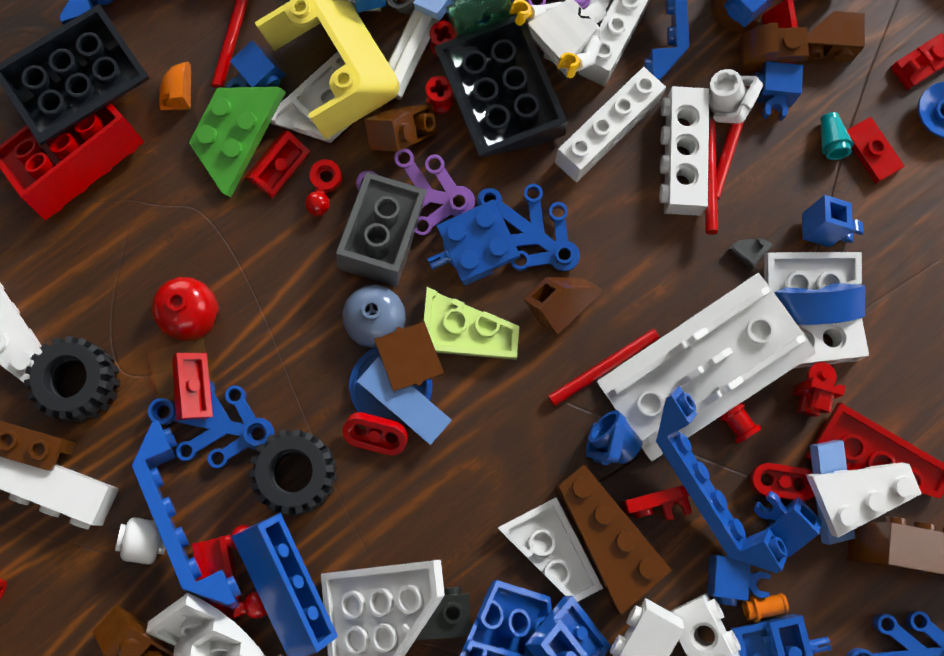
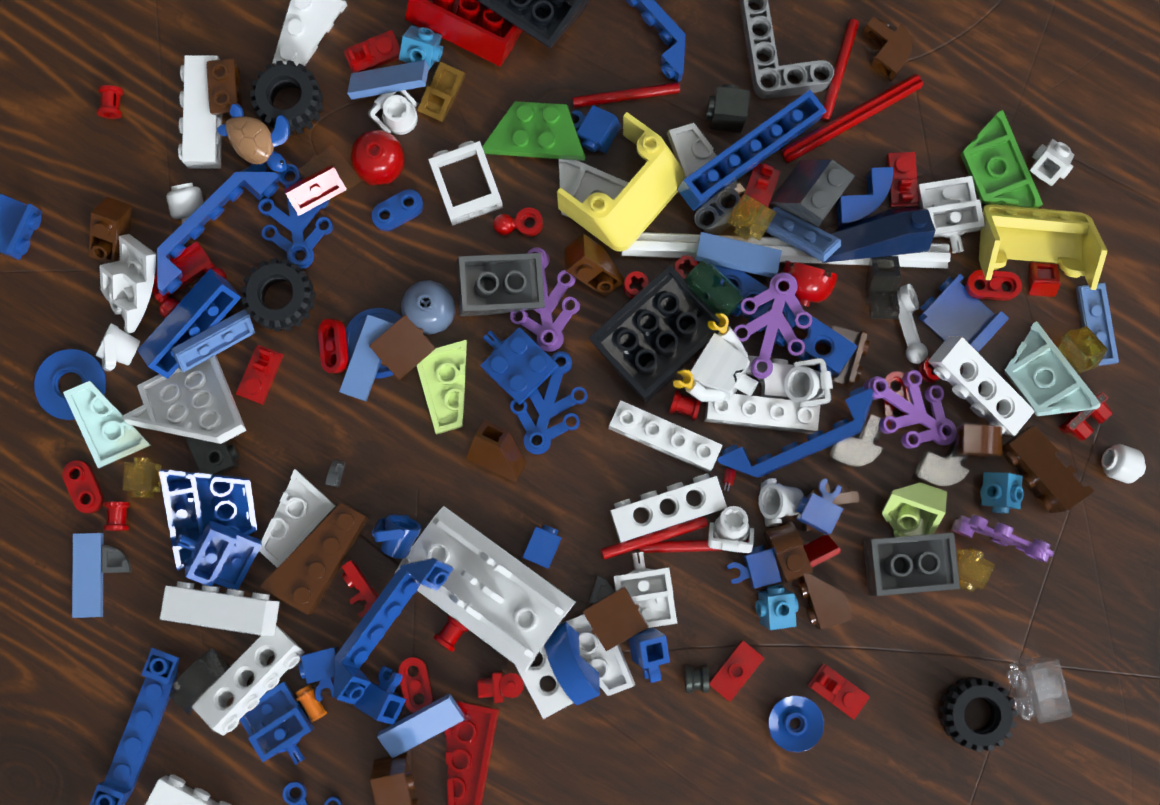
camera: 70 degrees right, 5 degrees up
(66, 271) = (373, 52): none -> red plate
(85, 213) = (420, 45): none -> dark azure brick
(104, 261) = (388, 79): none -> medium blue tile
(104, 431) = (254, 141): none -> animal
(143, 214) = (441, 92): none -> pearl gold slope
(144, 267) = (398, 112): none -> white piece
(176, 88) = (559, 70): orange brick -> none
(253, 308) = (398, 211): none -> blue plate
(277, 163) = (526, 178): red slope -> none
(286, 225) = (475, 207): none -> white window
(316, 566) = (213, 340): none -> medium blue tile
(373, 529) = (259, 374): none -> red plate
(520, 485) = (335, 473): none -> dark grey tile
(583, 94) = (685, 405): none -> red bush
(603, 367) = (457, 507): red bar -> none
(670, 81) = (729, 477): none -> red piece
(680, 291) = (542, 546): none -> blue brick
(718, 42) = (778, 501): none -> white piece
(769, 207) = (651, 591): none -> white plate
(786, 241) = (615, 618): none -> reddish brown piece
(827, 82) = (777, 607): none -> dark azure brick
(834, 137) = (732, 632): teal cone -> none
(862, 494) = (425, 750): white wing -> none
(871, 188) = (696, 678): none -> pearl dark grey wheel

